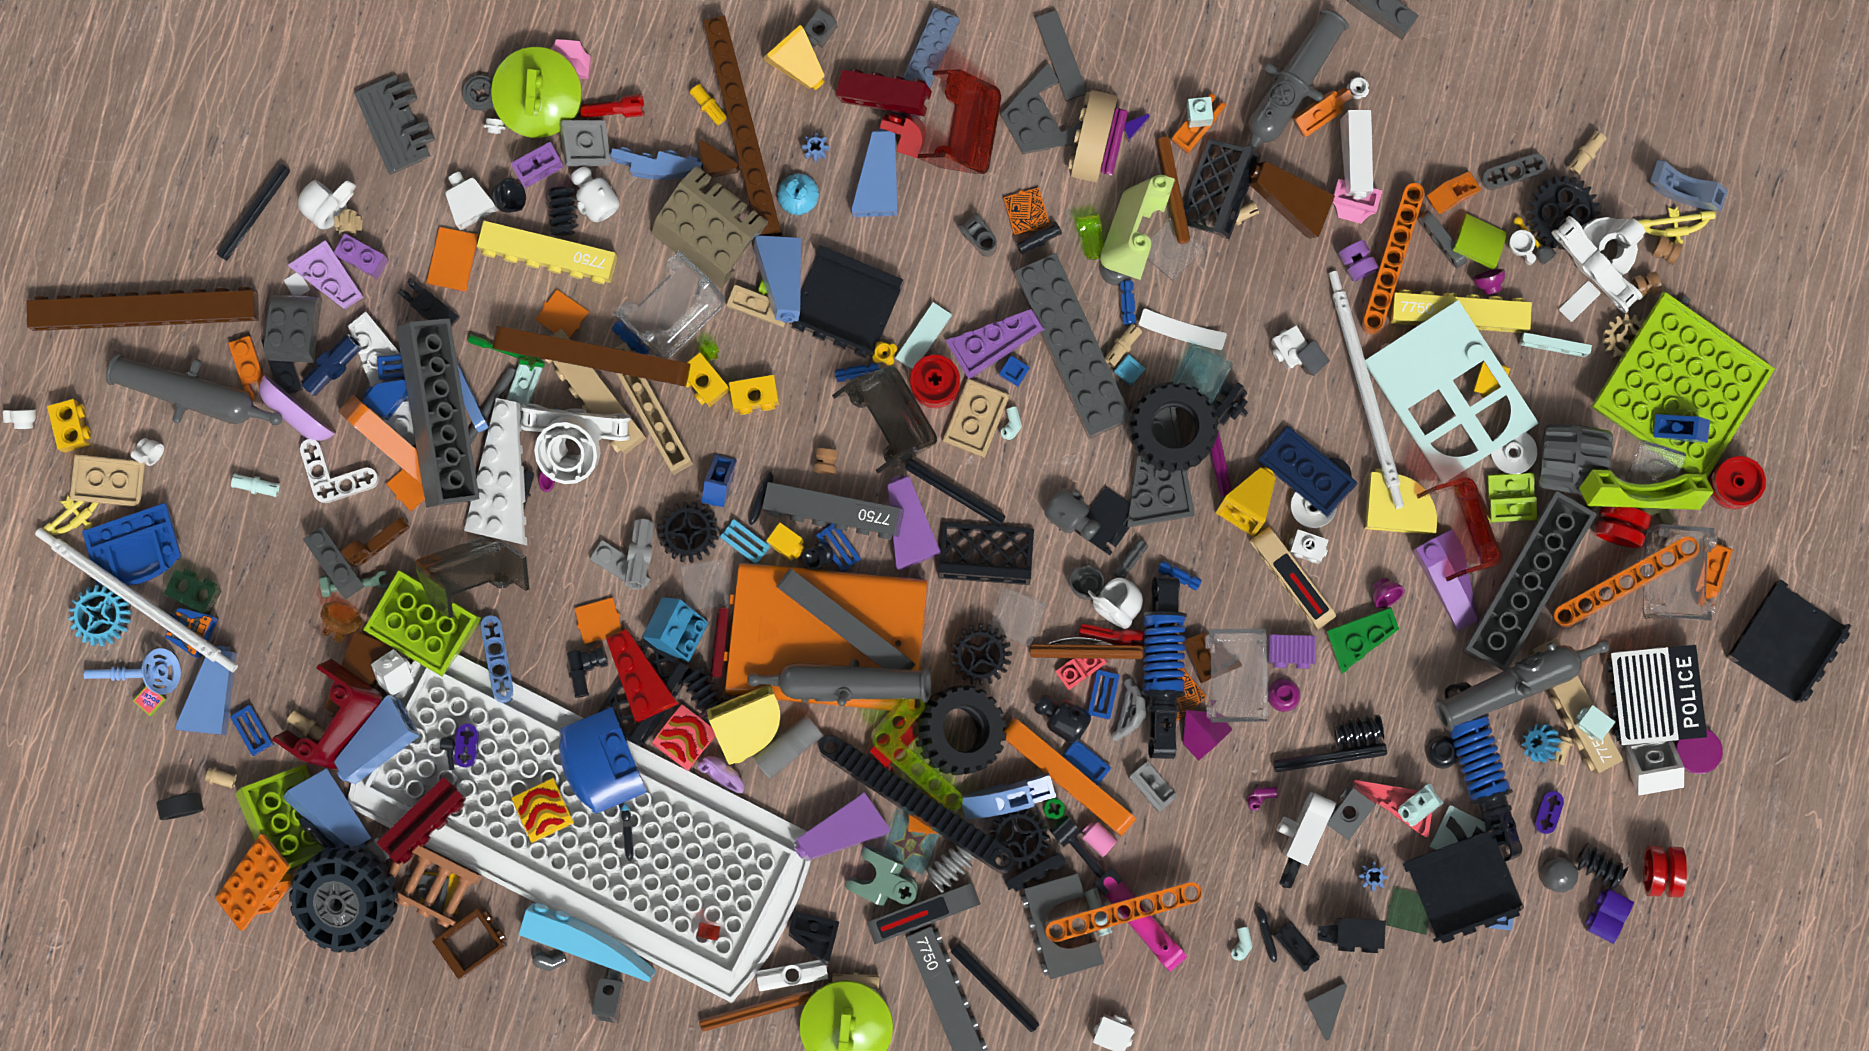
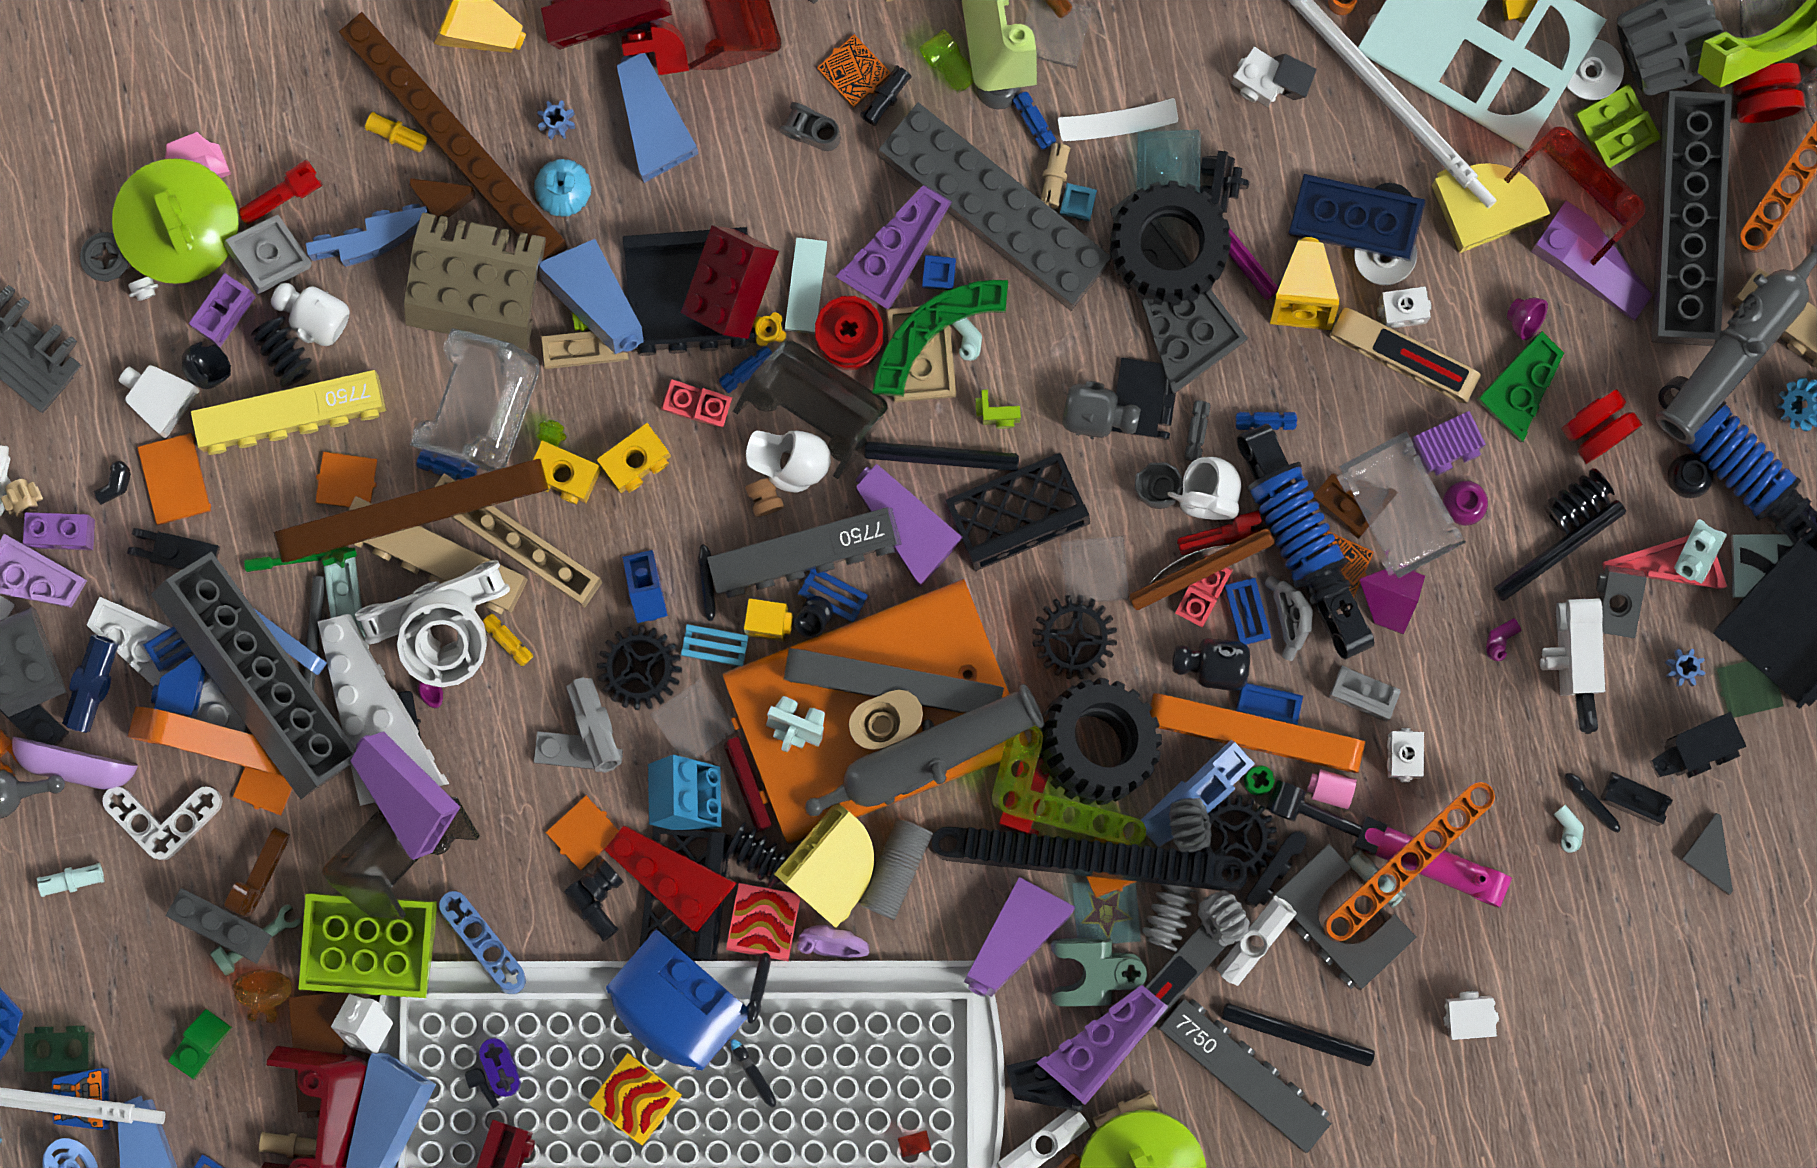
camera: 30 degrees left, 0 degrees up
(284, 632) = (199, 1043): none -> green slope
(414, 244) = (117, 483): none -> black arm
(493, 537) = (404, 793): none -> medium lavender slope
(612, 470) = (507, 640): none -> yellow axle
(659, 778) = (758, 987): none -> black piece
(765, 621) = (794, 729): none -> light aqua hips
(813, 378) = (696, 403): none -> coral slope
(827, 646) = (886, 719): none -> tan piece
(857, 931) = (1099, 1049): none -> medium lavender wing
(862, 453) = (807, 463): none -> white piece
(872, 309) = (729, 282): none -> dark red brick
(983, 887) = (1223, 918): none -> light grey gear
(991, 400) = (927, 322): none -> green tile
(991, 815) = (1190, 825): none -> dark grey gear
(1007, 486) = (1003, 417): none -> lime bracket
(1008, 906) = (1268, 927): none -> white piece
(1149, 845) = (1398, 765): none -> white head
(1397, 687) = (1602, 428): none -> red wheel

